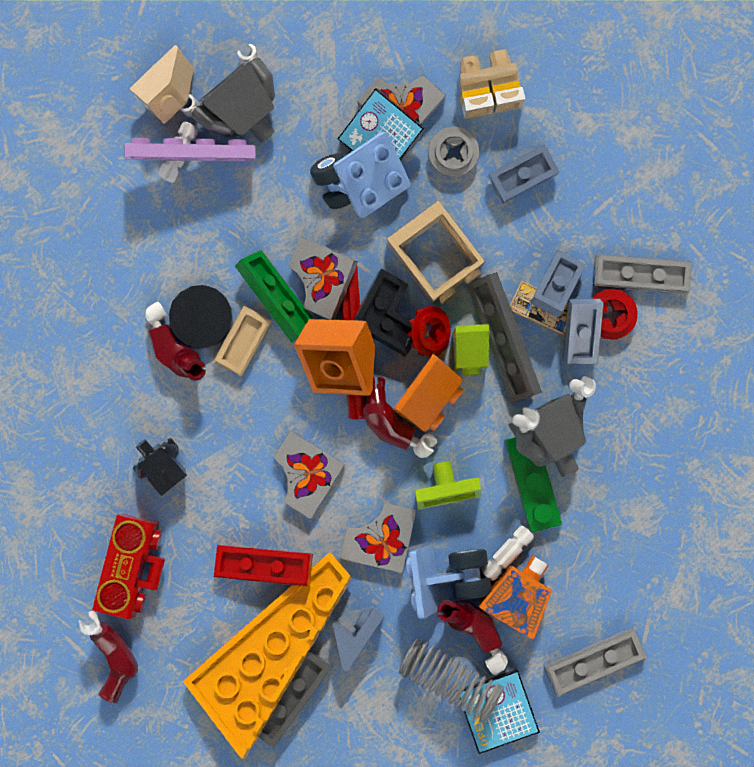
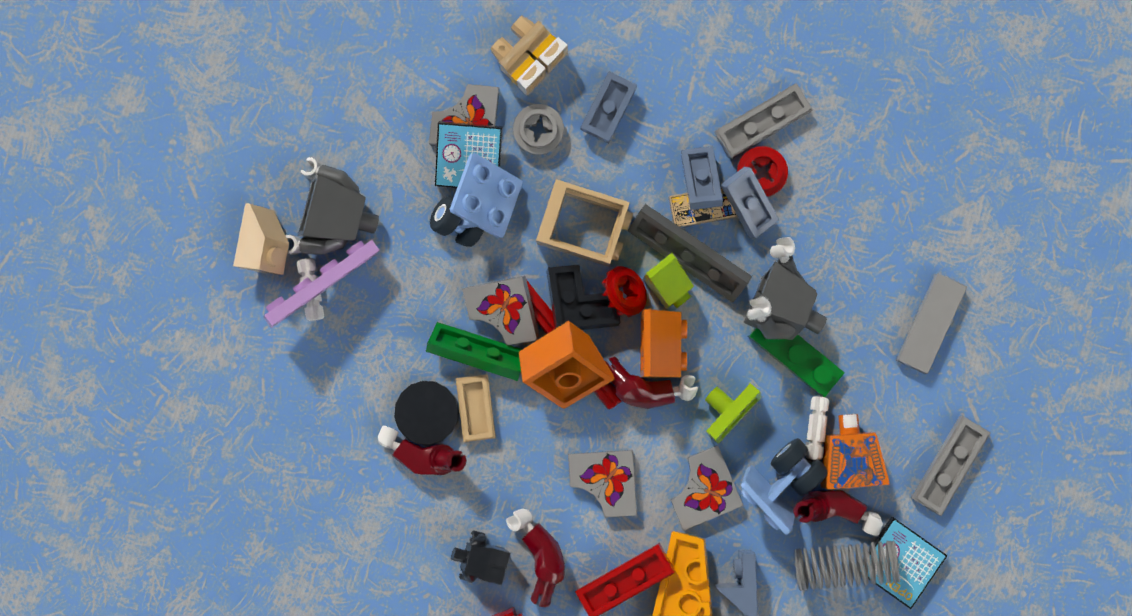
camera: 30 degrees left, 0 degrees up
(216, 497) = (547, 554): none -> dark red arm
(662, 535) = (931, 323): none -> light grey tile

